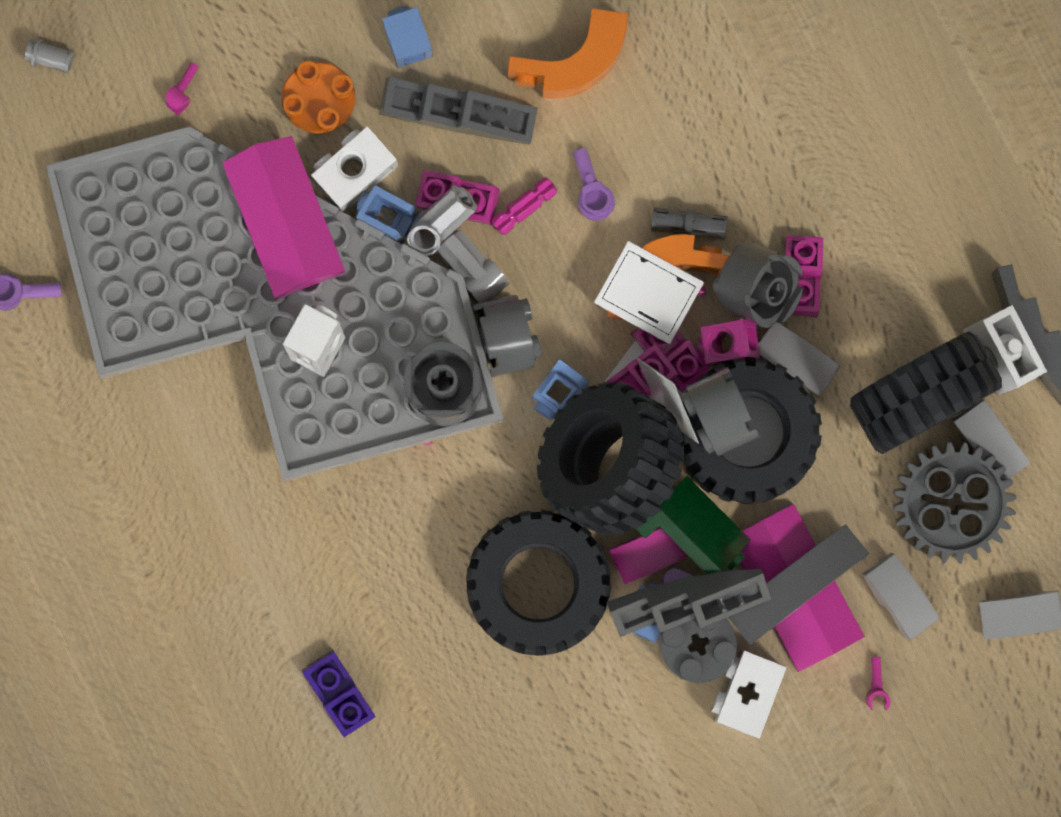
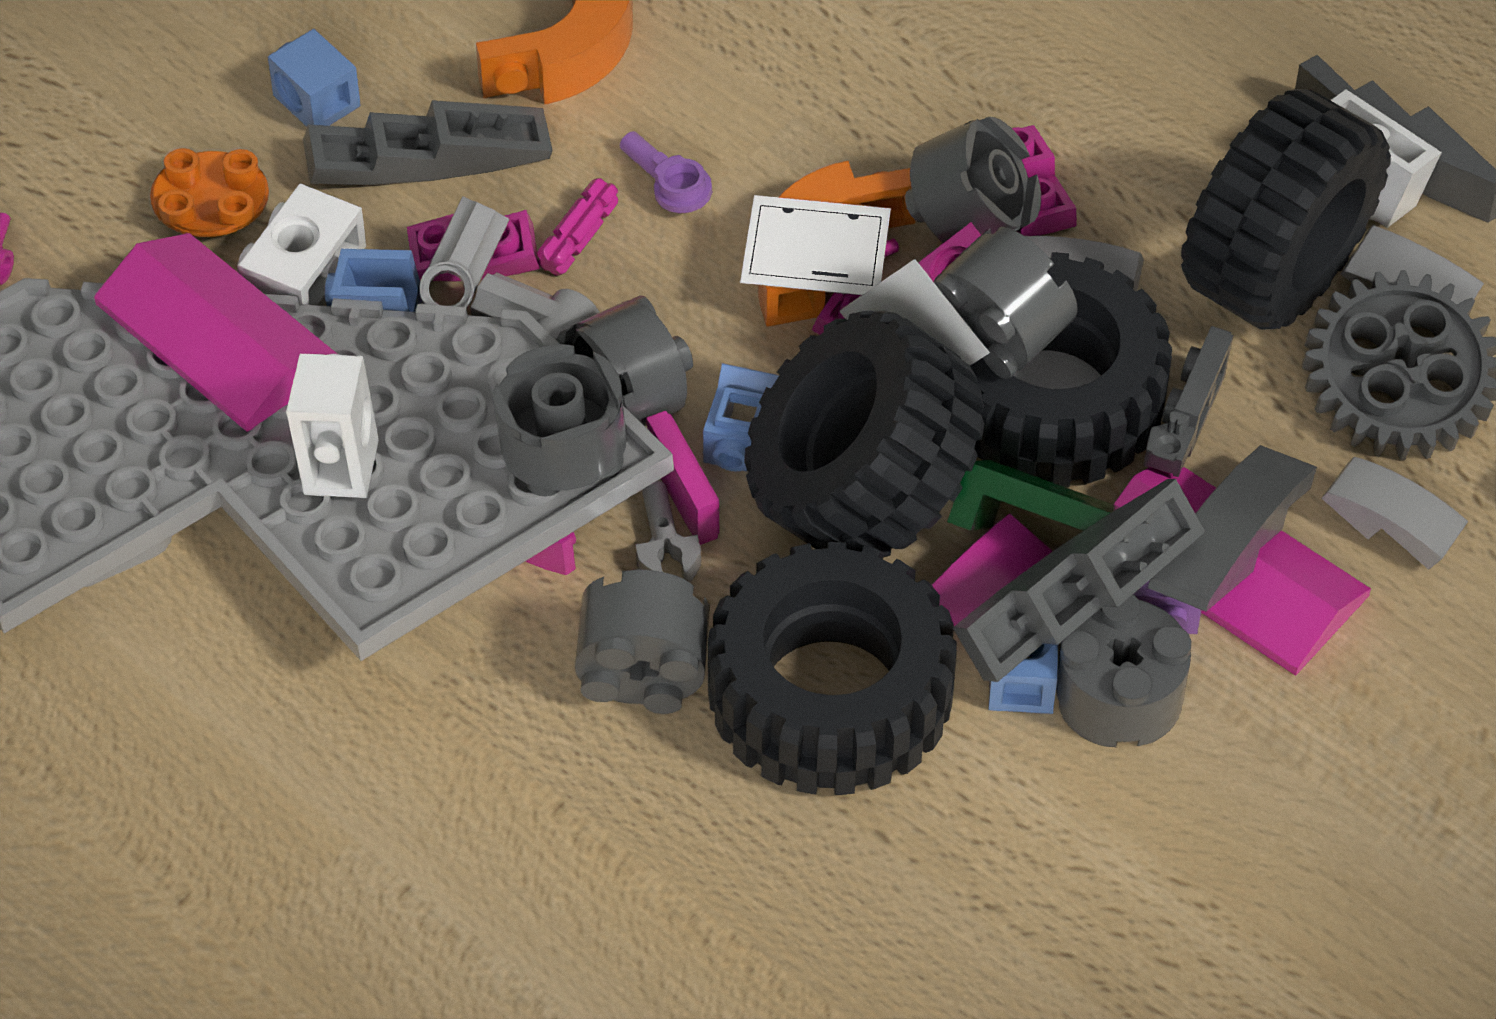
camera: 20 degrees left, 30 degrees down
(338, 693) = (573, 954): dark purple slope -> none
(442, 526) = (642, 640): none -> dark grey brick
(487, 446) = (664, 536): none -> light grey bar
(512, 416) = (687, 482): none -> dark pink tile
(689, 223) = (863, 159): dark grey pin -> none
(752, 715) = (1239, 715): white brick -> none
(815, 484) = (1190, 407): none -> dark grey hinge
(877, 685) = (1429, 648): dark pink hand -> none

